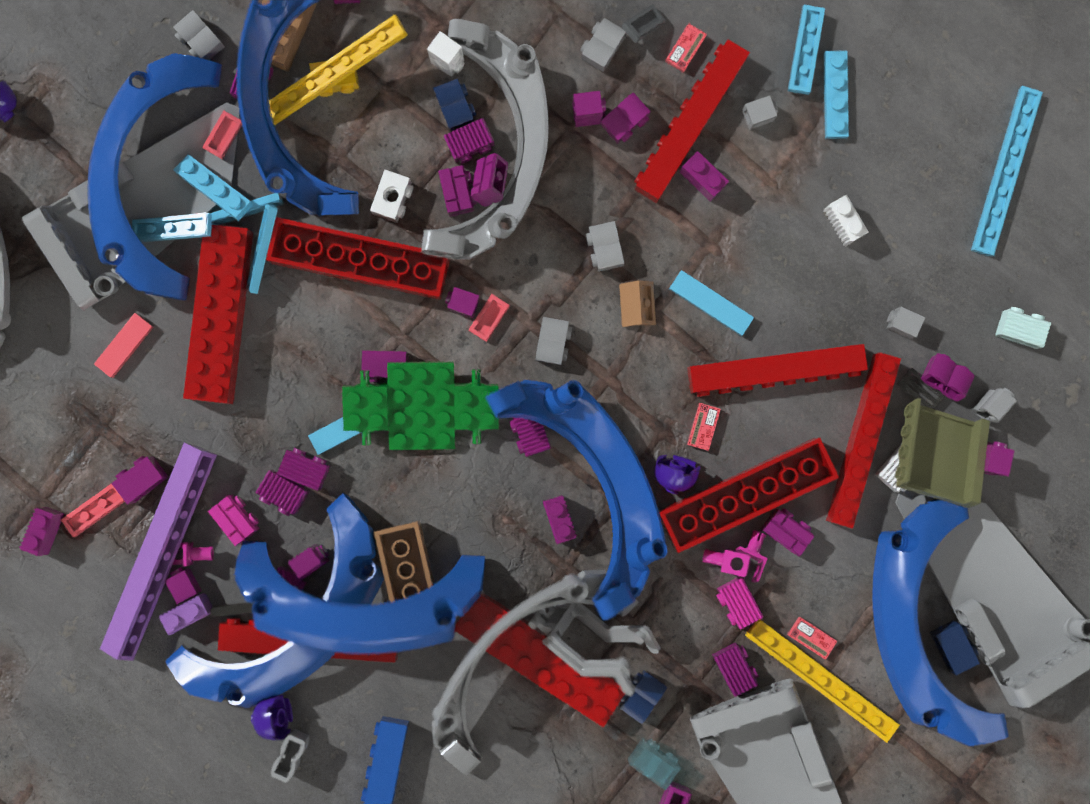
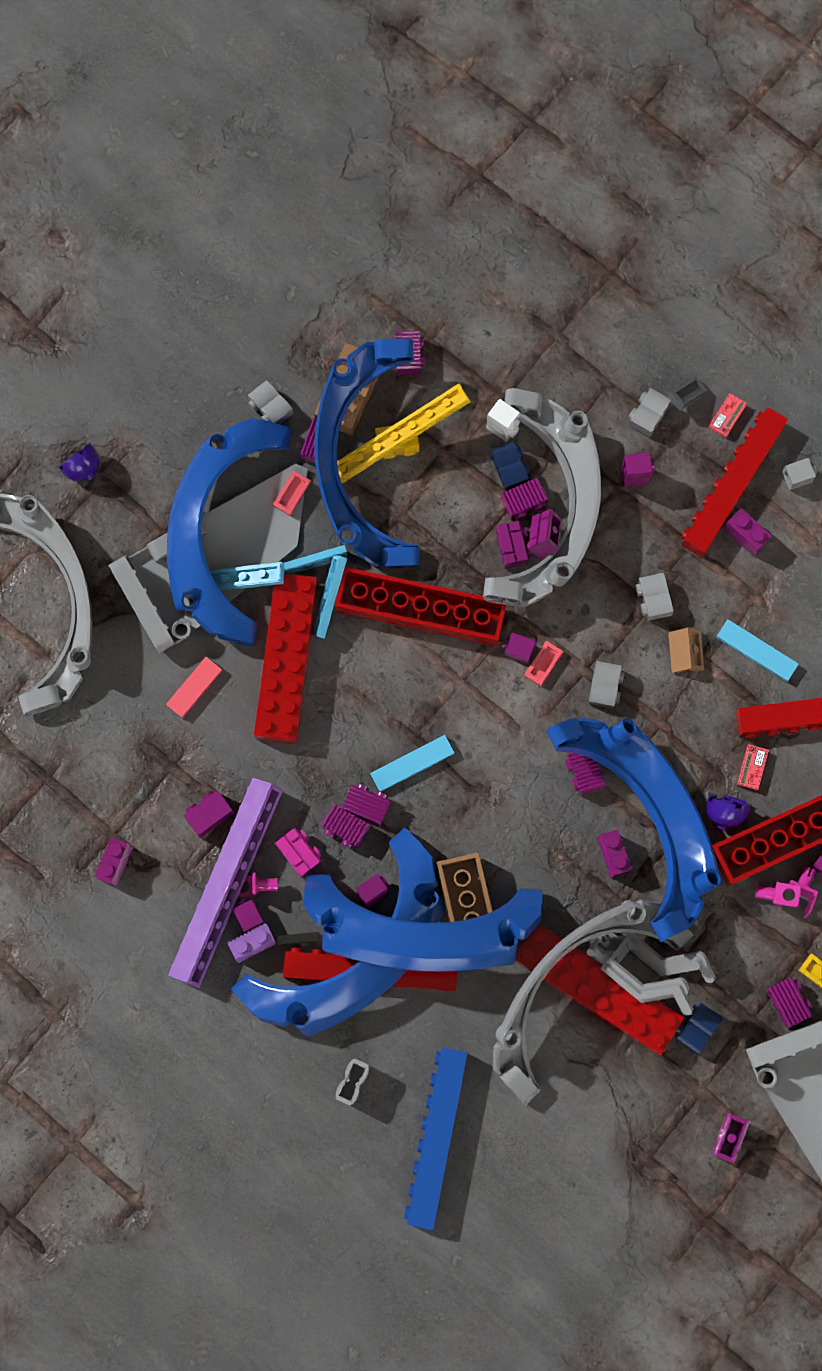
camera: 10 degrees right, 10 degrees down
(92, 510) = (163, 843): coral tile -> none
(213, 187) = (283, 540): medium azure plate -> none
(272, 718) = (334, 1044): dark purple cylinder -> none
(377, 362) = (444, 707): magenta brick -> none
(390, 184) = (451, 538): white brick -> none
(419, 406) = (480, 744): green piece -> none
(625, 118) = (671, 479): magenta brick -> none
(654, 763) = (711, 1095): clear light blue brick -> none
(739, 603) = (791, 937): dark pink brick -> none

